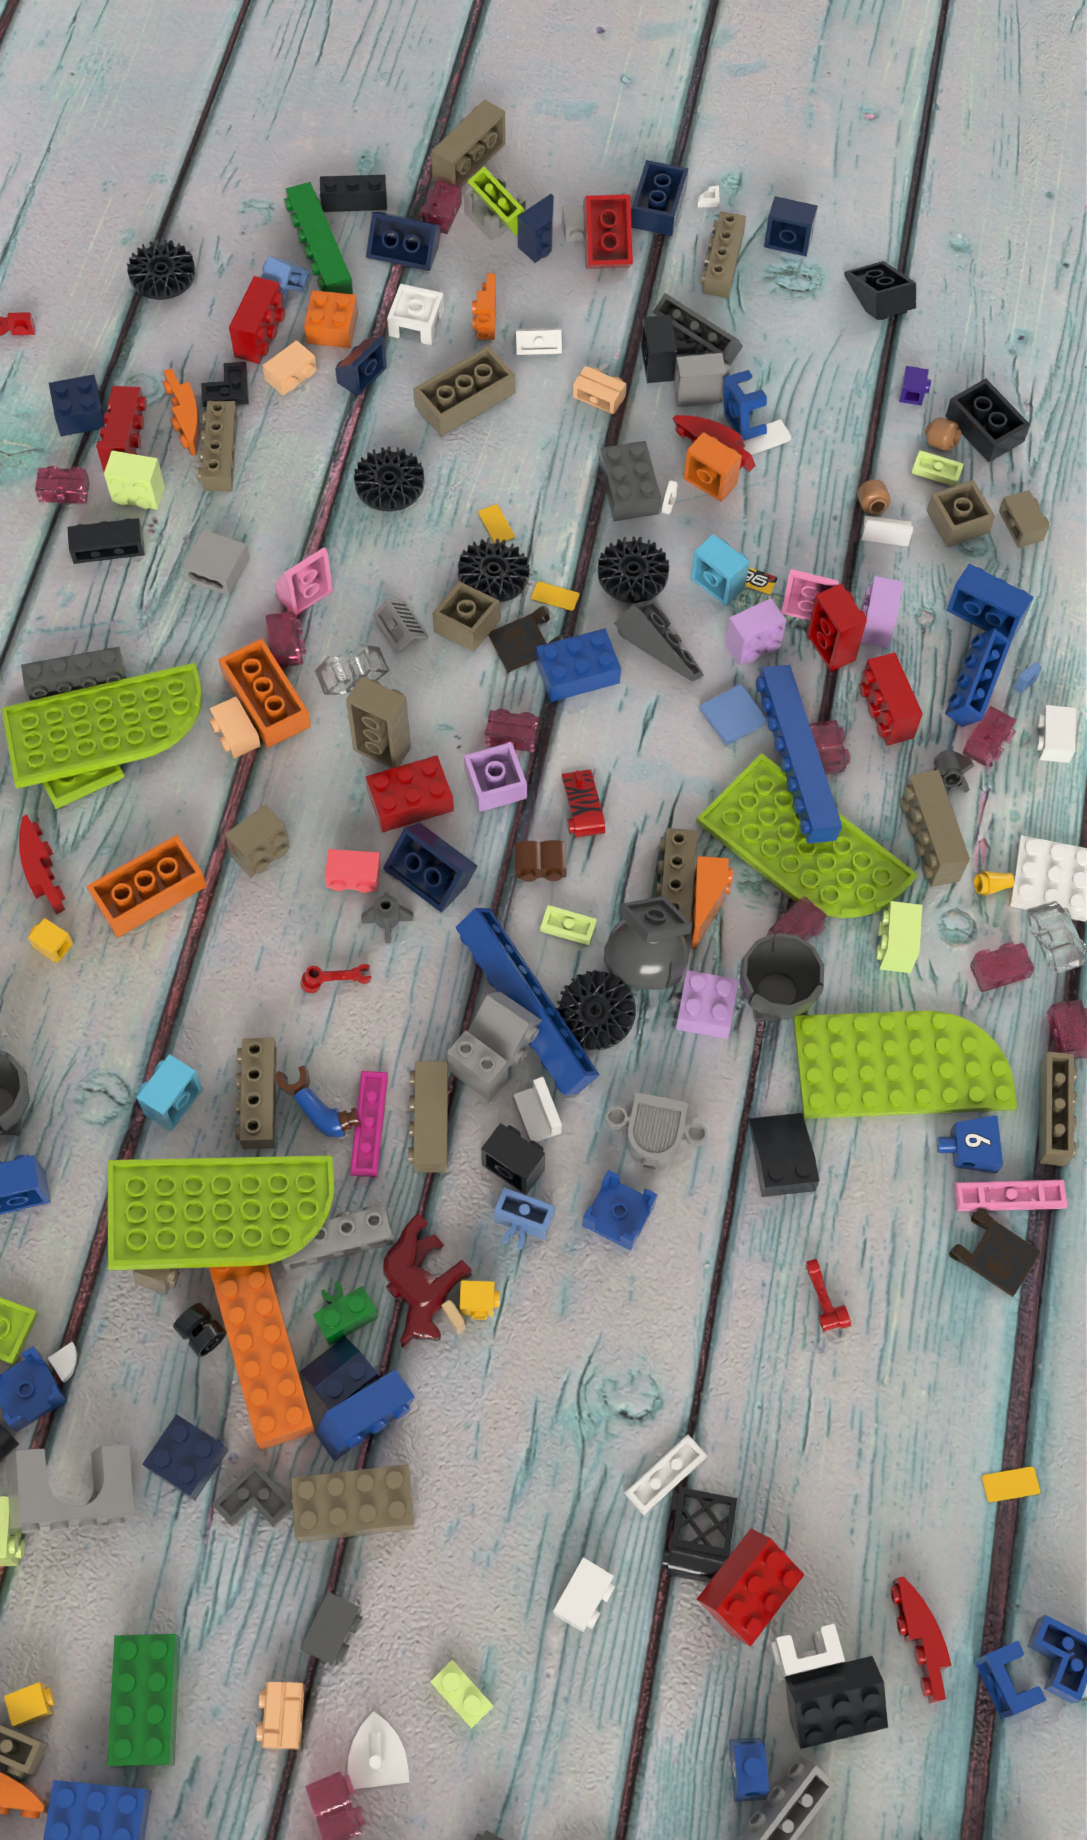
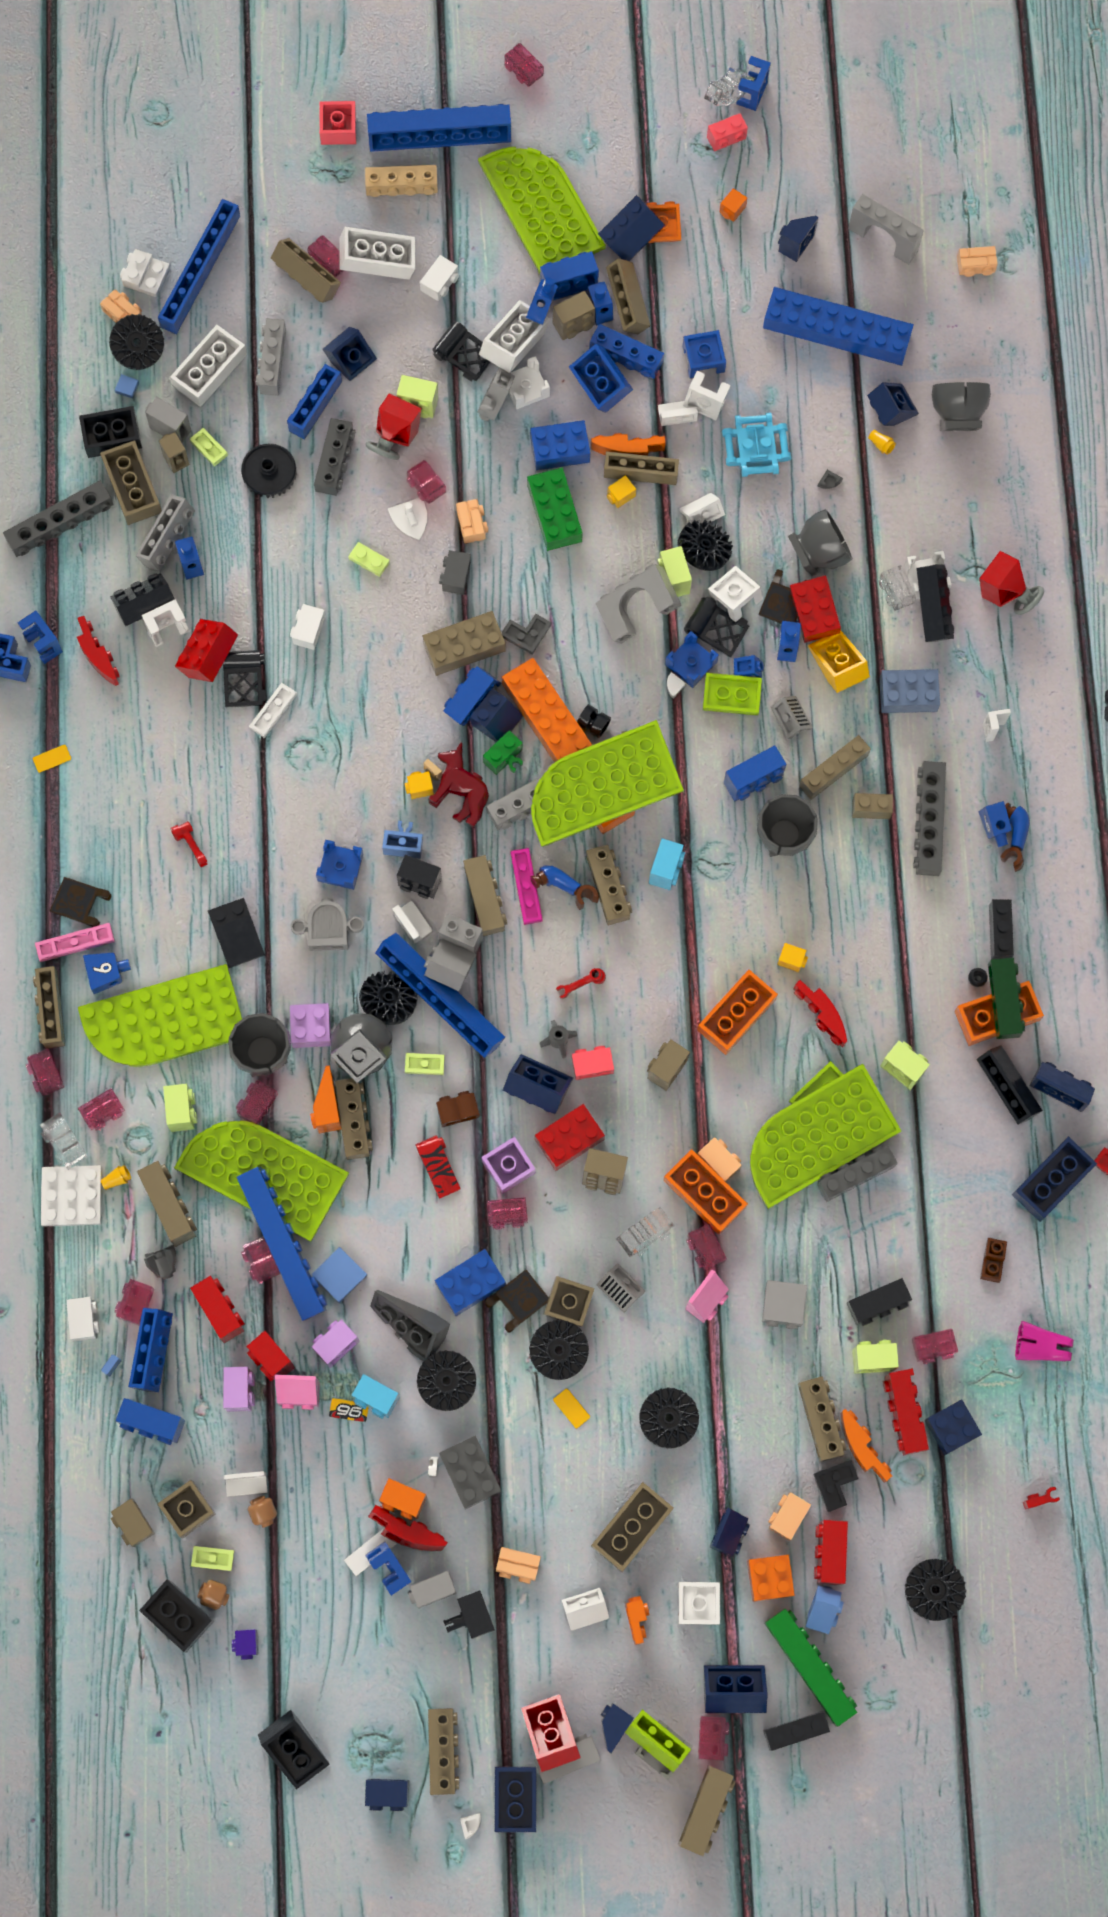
camera: 165 degrees right, 10 degrees up
(185, 1457) = (576, 644): dark blue brick -> none
(555, 596) = (505, 1350): yellow sticker -> none
(694, 326) = (447, 1650): dark grey brick -> none

